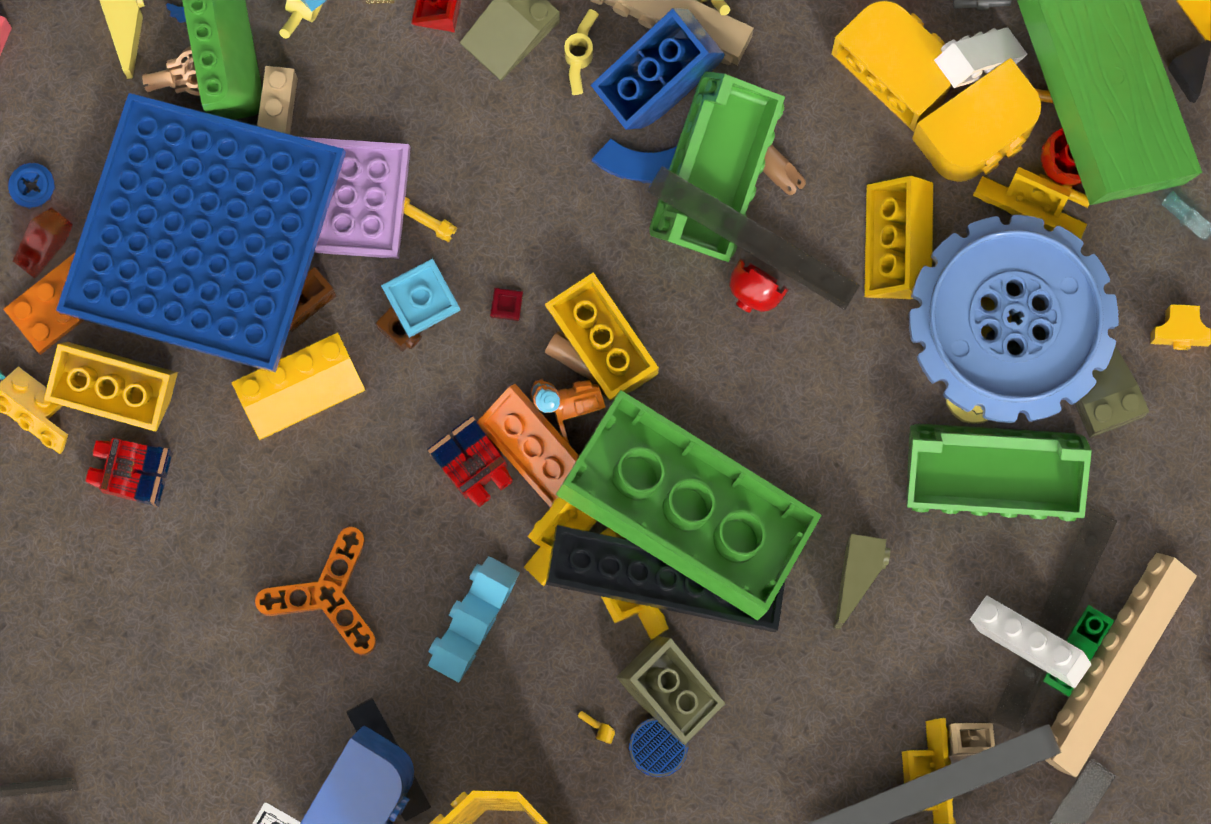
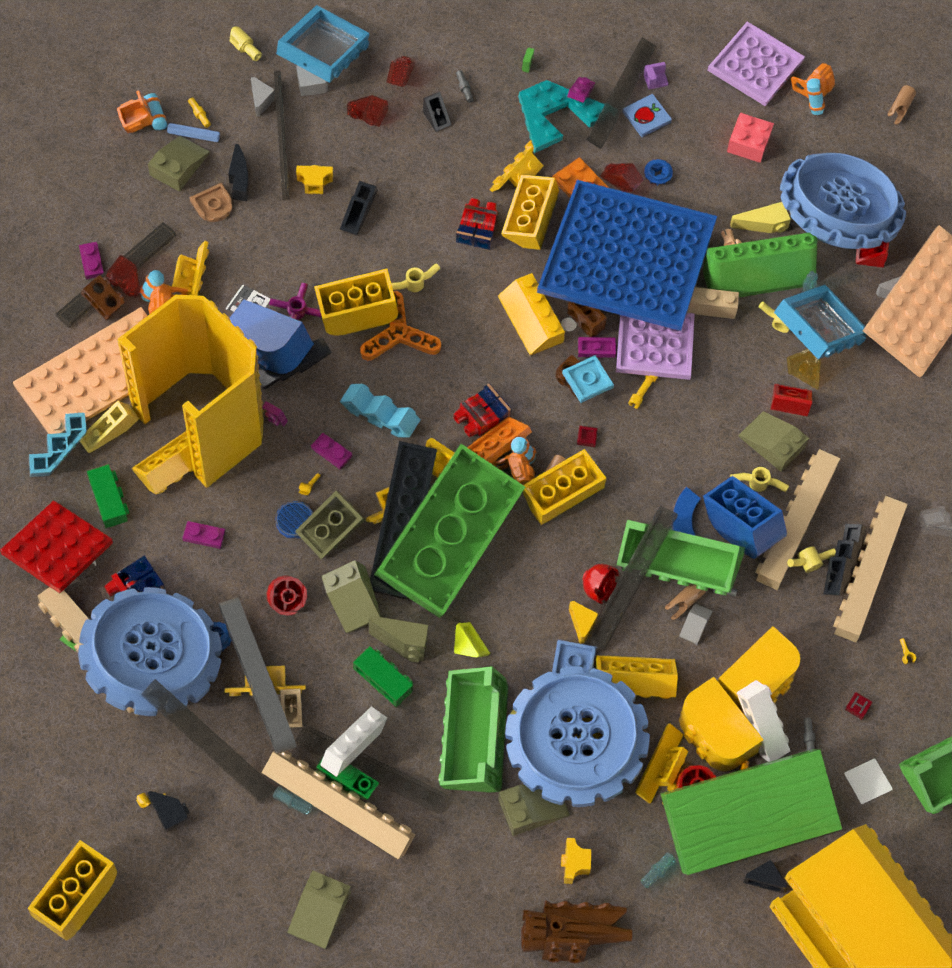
camera: 85 degrees right, 15 degrees down
(40, 738) = (314, 177): none -> yellow brick
(99, 663) = (358, 208): none -> black slope
(228, 558) = (415, 273): none -> light yellow piece
(275, 753) = (296, 301): none -> magenta bar
(292, 656) = (357, 303): none -> yellow brick
(309, 331) = (568, 324): none -> white sticker
(354, 287) = (596, 346): none -> magenta plate
(488, 780) = (274, 414): none -> magenta plate
(539, 694) = (331, 451): none -> magenta plate
(791, 652) = (351, 595): none -> olive slope
(794, 752) = (286, 595): none -> red cylinder
(810, 151) = (695, 623): none -> light grey slope
(816, 313) = (583, 620): none -> yellow slope
(853, 479) = (468, 641): none -> neon yellow slope
(877, 328) = (573, 654): none -> medium blue tile
(913, 603) = (383, 676): none -> green brick
(1111, 734) = (292, 801): none -> clear light blue axle

